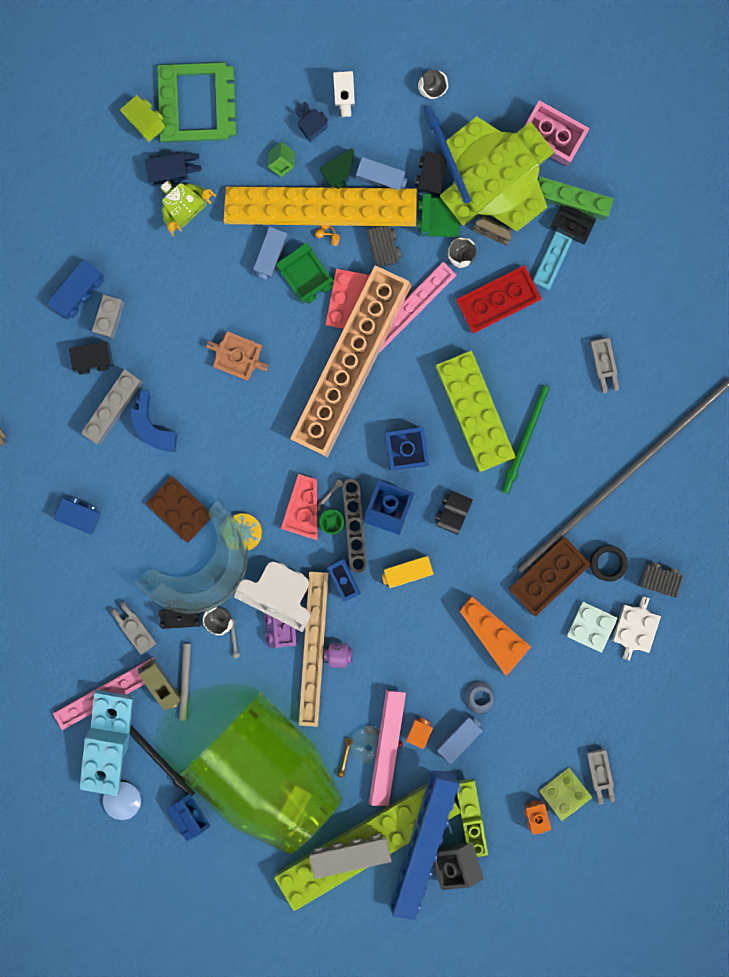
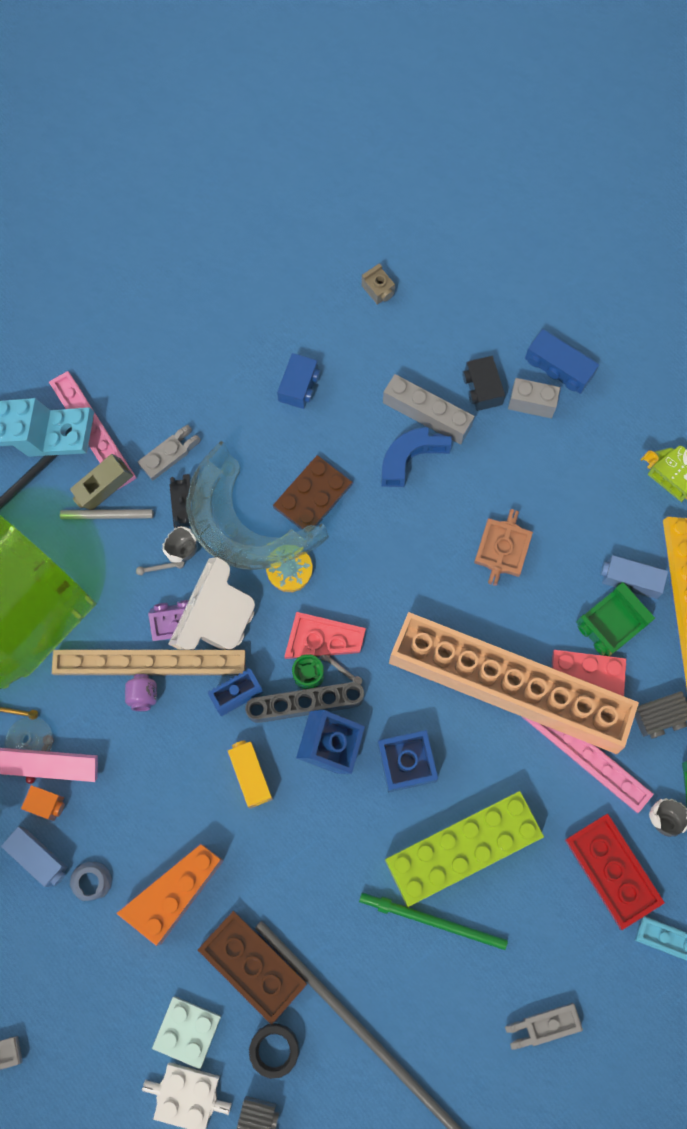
camera: 90 degrees right, 15 degrees down
(320, 233) = (667, 636): light orange piece -> none
(454, 512) = (330, 829): black brick -> none

